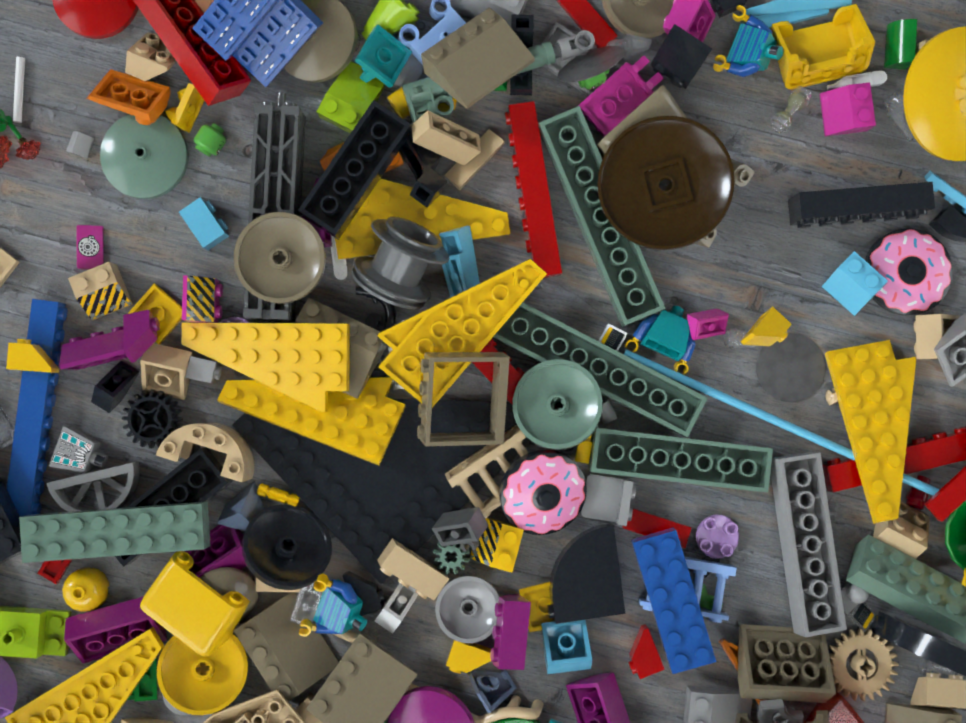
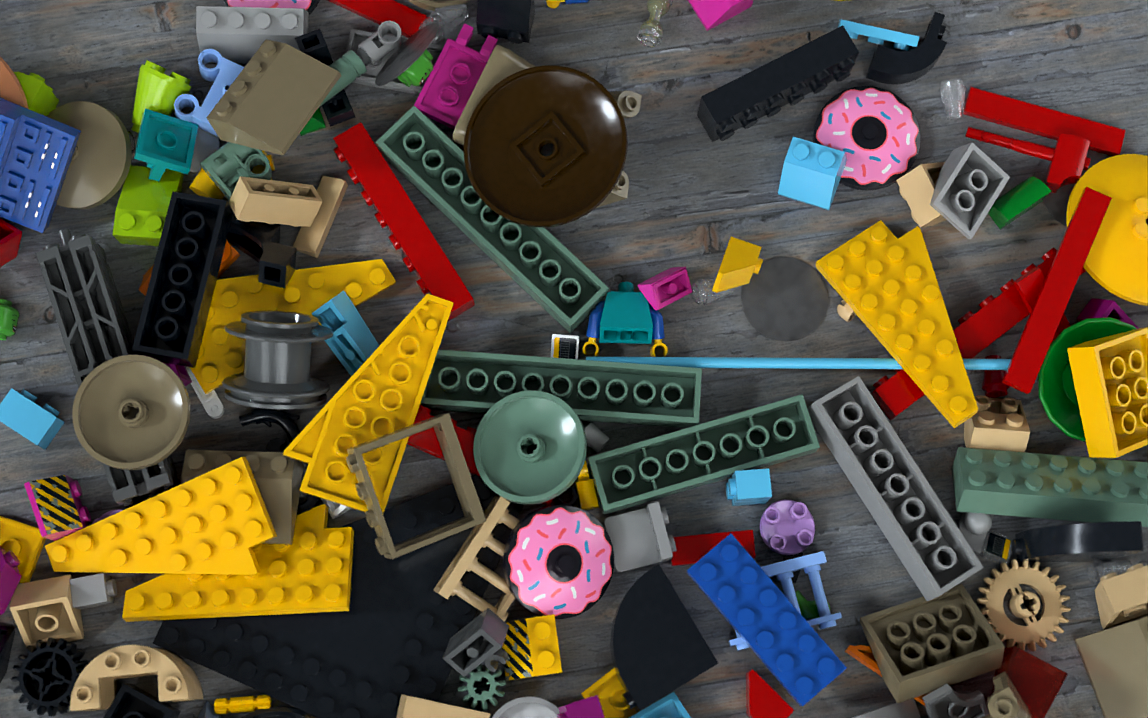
camera: 25 degrees left, 10 degrees down
(703, 498) = (749, 487): none -> medium azure brick

